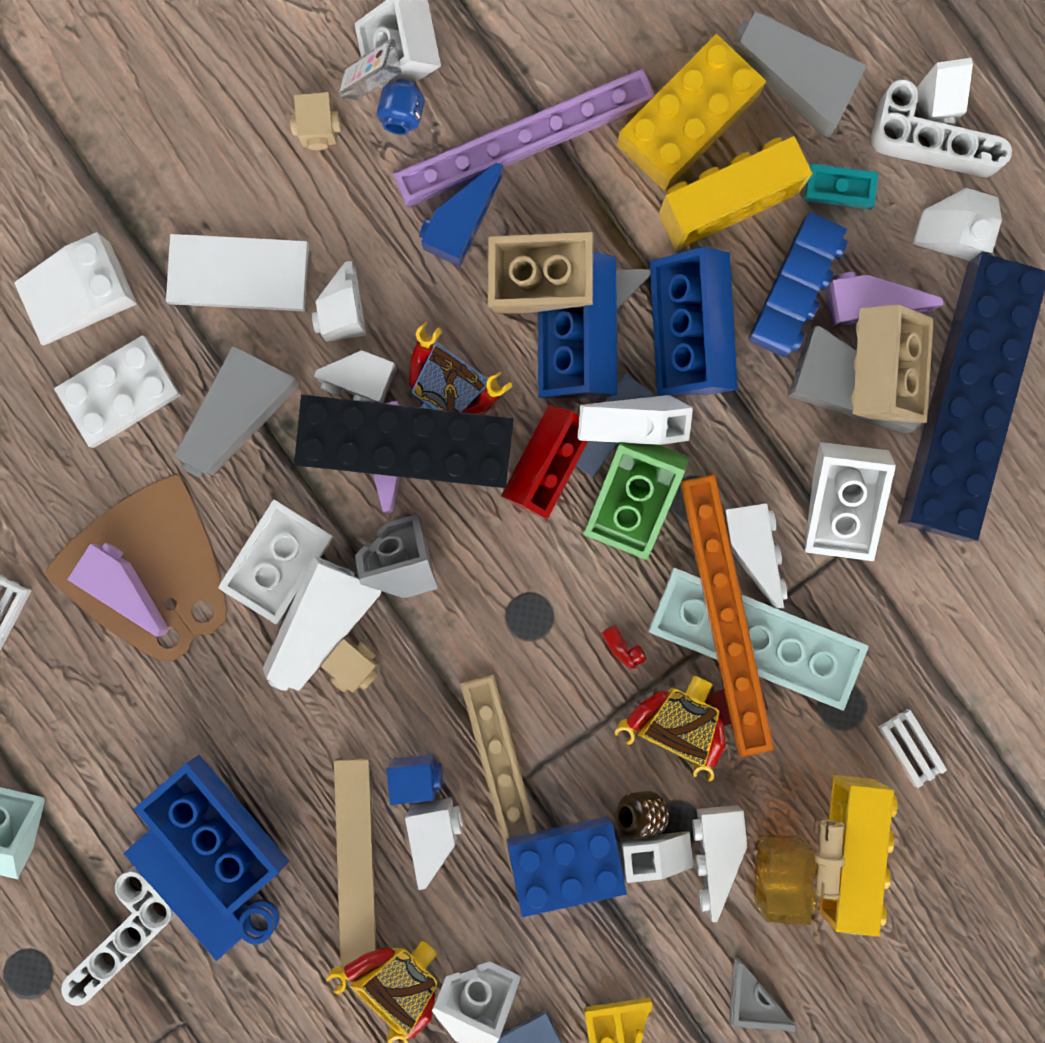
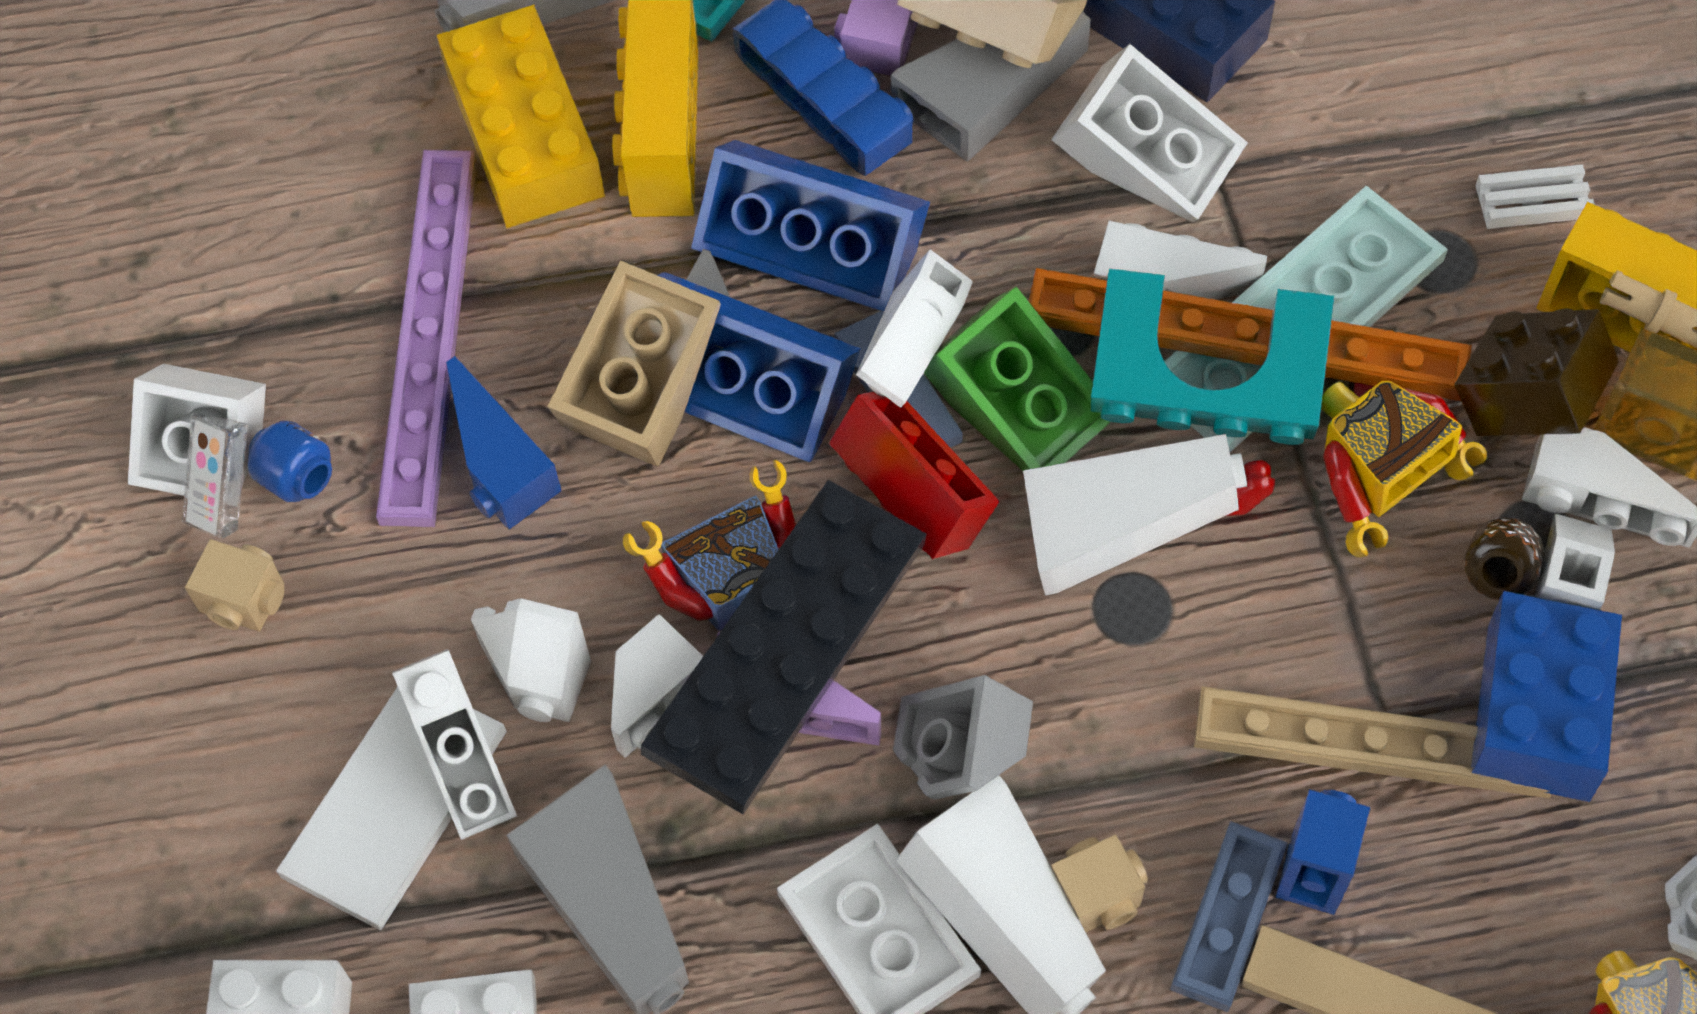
camera: 60 degrees left, 25 degrees down
(275, 286) = (454, 744): none -> white slope
(369, 739) = (1228, 916): none -> sand blue tile
(432, 836) = (1432, 863): white slope -> none
(577, 585) = (1126, 504): none -> white slope
(682, 652) = (1276, 401): none -> teal arch
(767, 796) = (1537, 373): none -> dark brown brick

